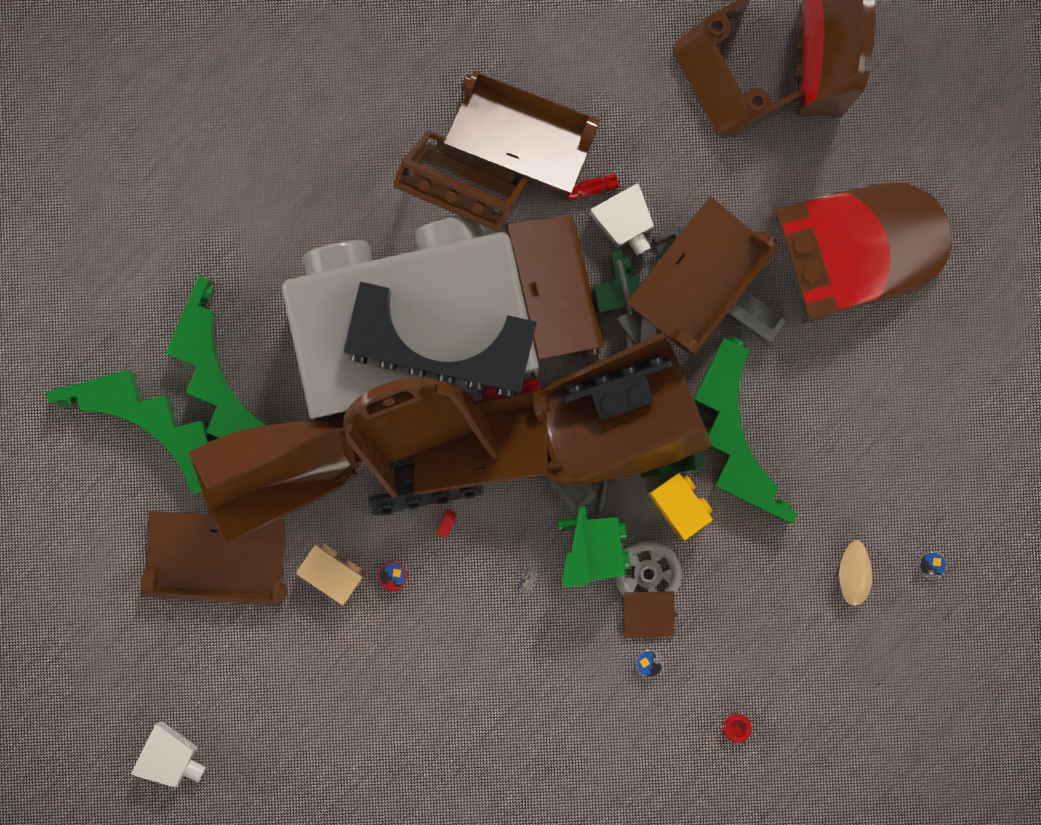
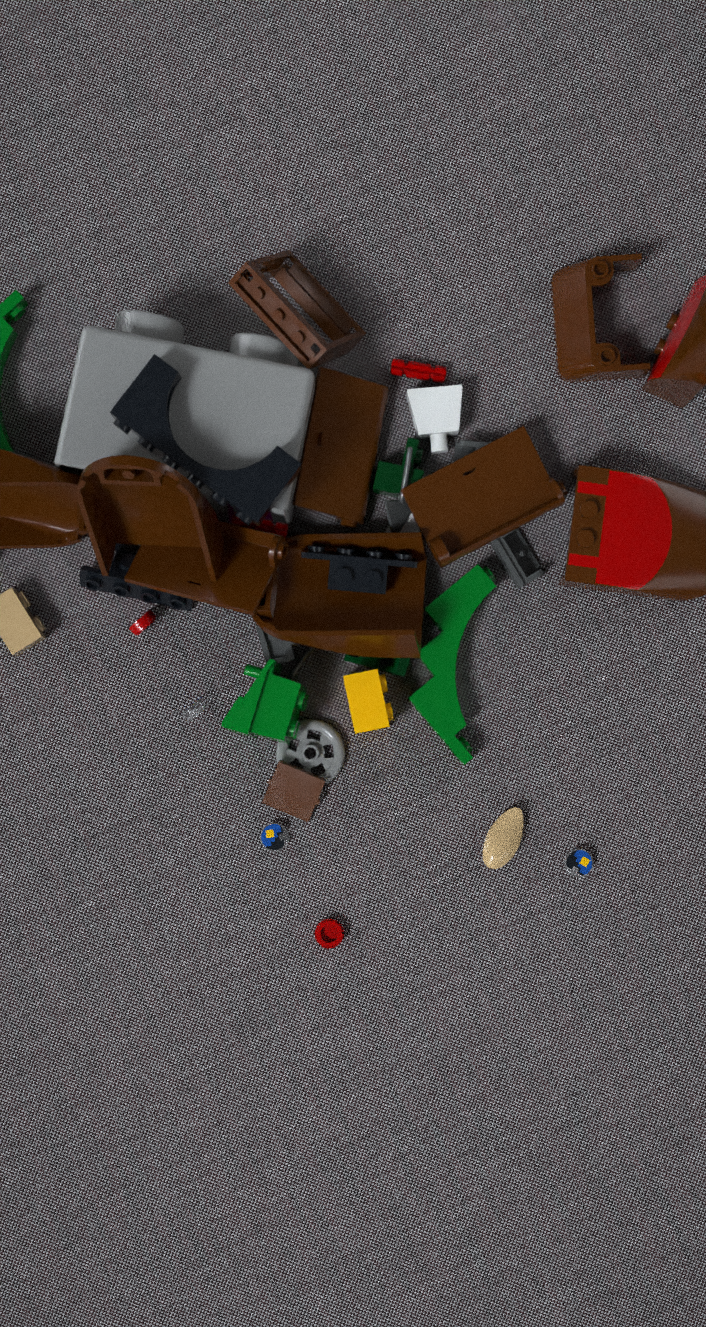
camera: 25 degrees right, 0 degrees up
(392, 576) = (72, 649): tile -> none
(521, 132) = (375, 290): door -> none

